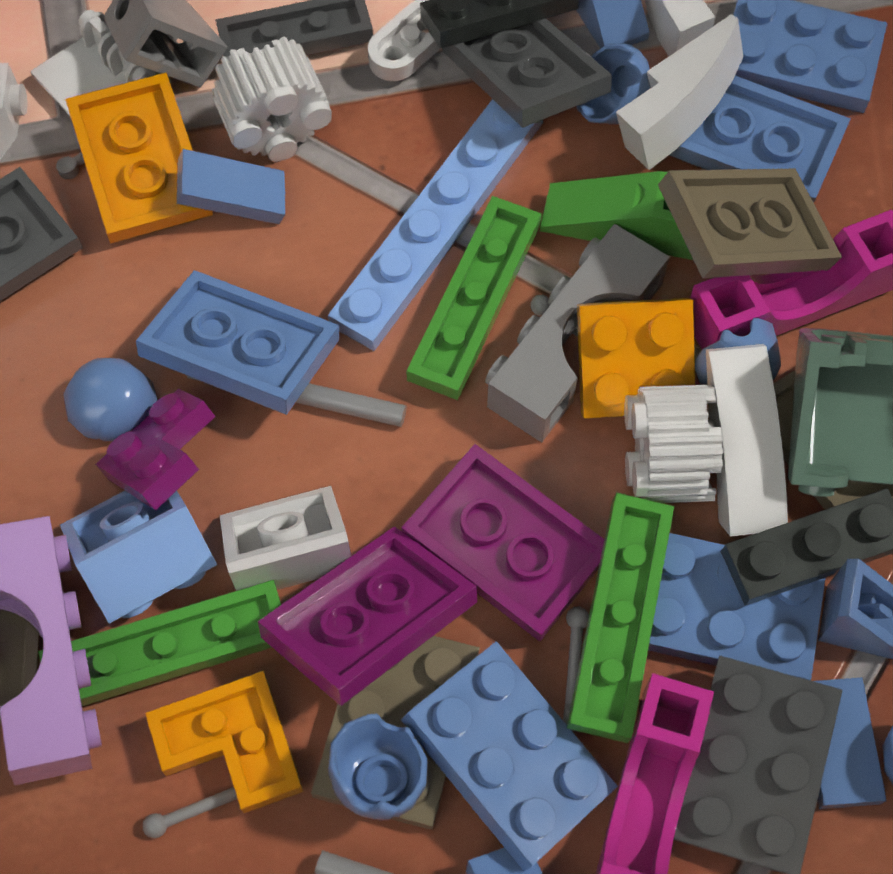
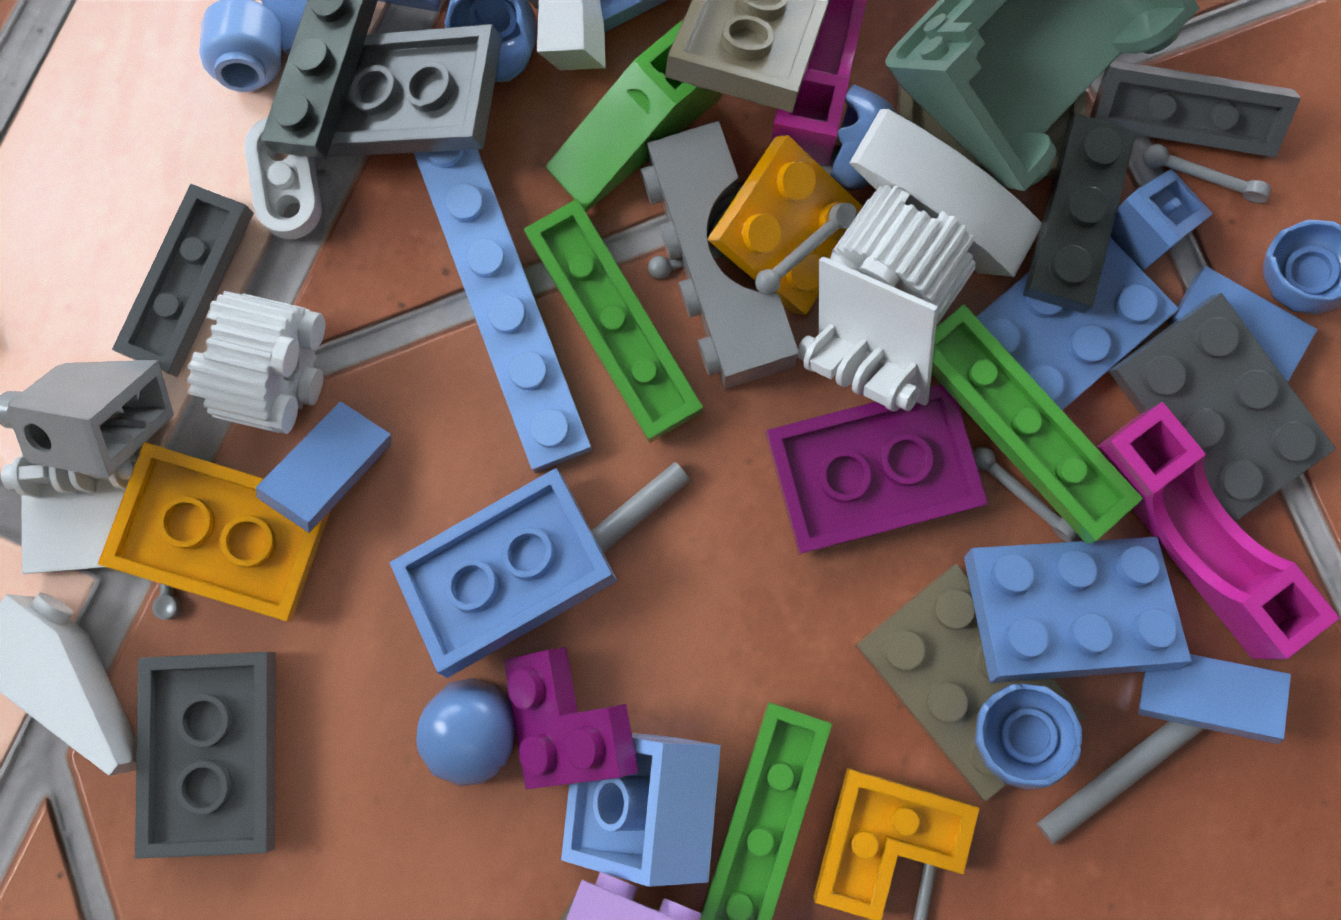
camera: 45 degrees left, 15 degrees up
(285, 540) = (730, 663): white slope -> none
(367, 614) = (870, 644): magenta plate -> none
(579, 361) = (840, 217): none -> light grey hinge
(592, 460) = (872, 338): none -> white hinge

